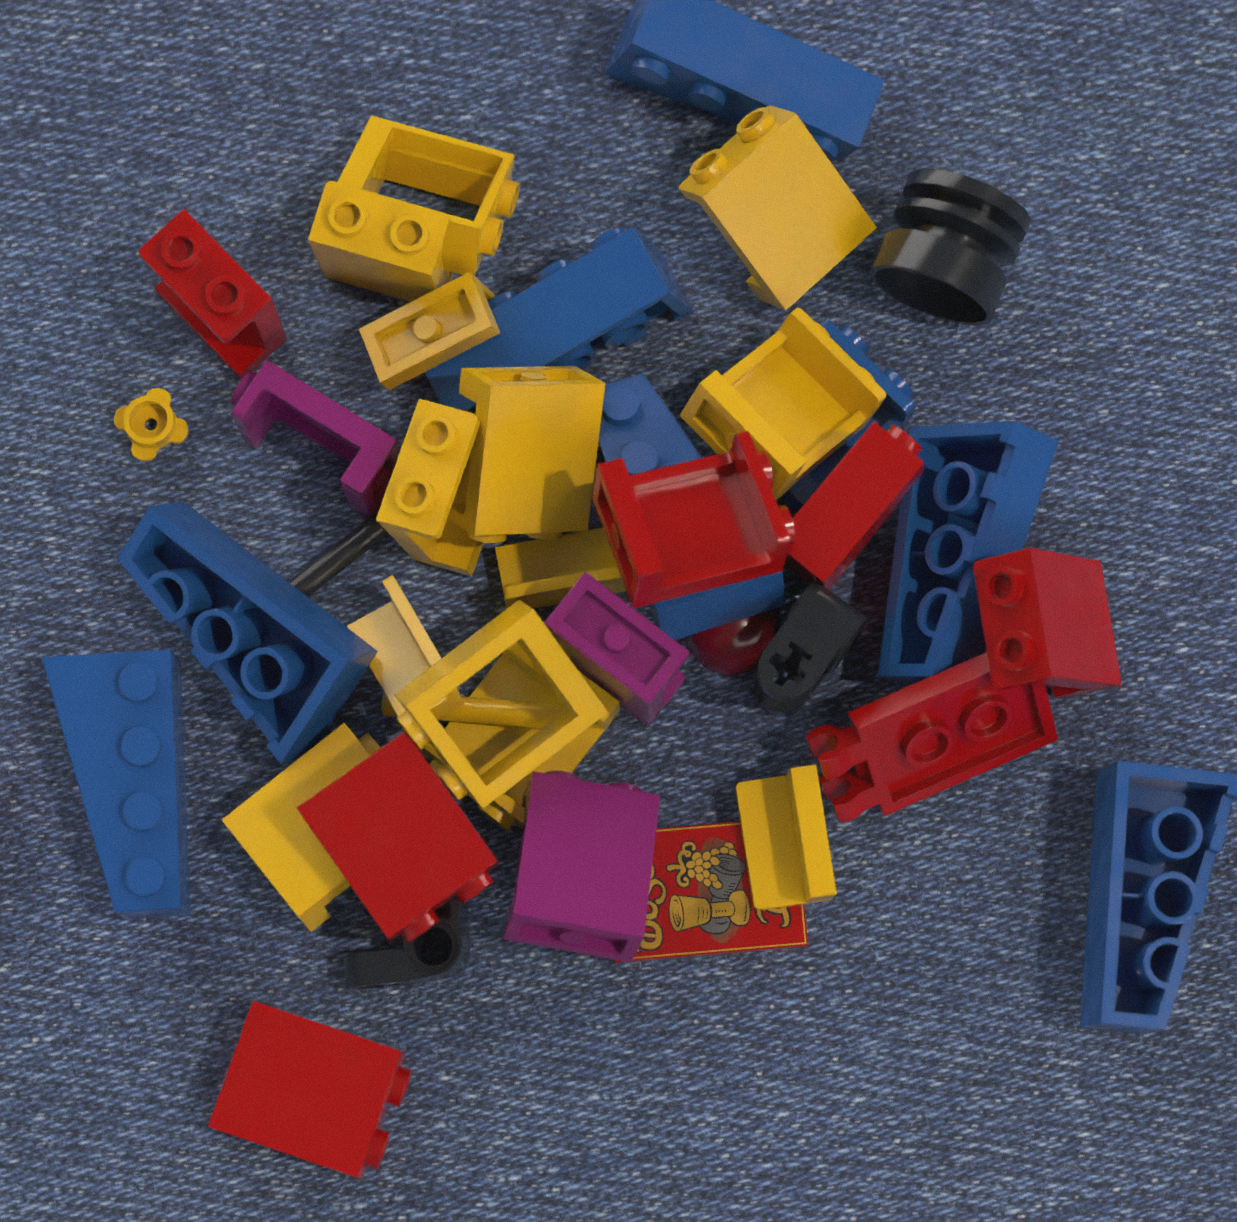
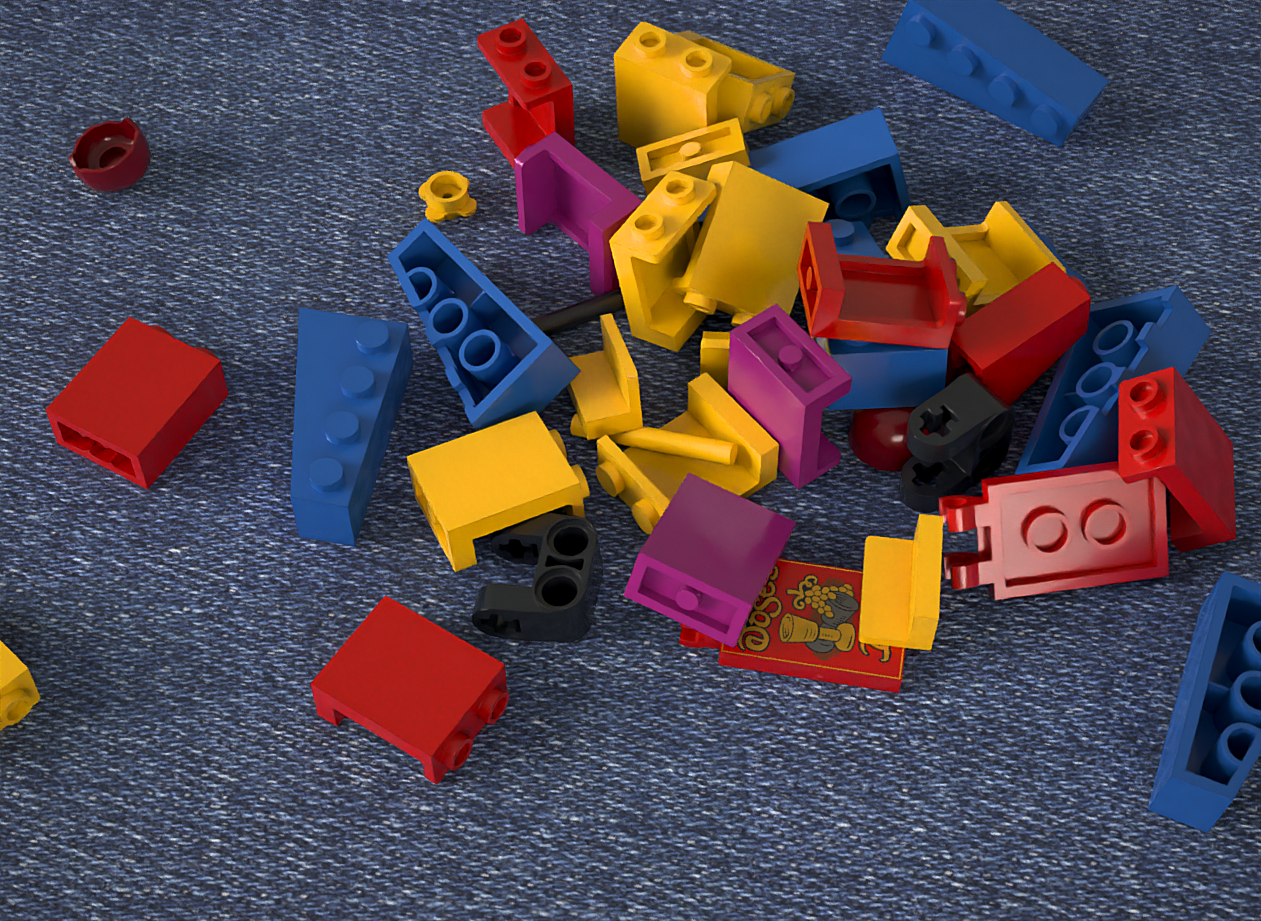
camera: 15 degrees right, 25 degrees down
(399, 839) = (556, 483): red panel -> none
(515, 624) = (725, 376): yellow window -> none
(778, 204) = (1005, 133): yellow panel -> none
(950, 246) = (1142, 192): black wheel -> none

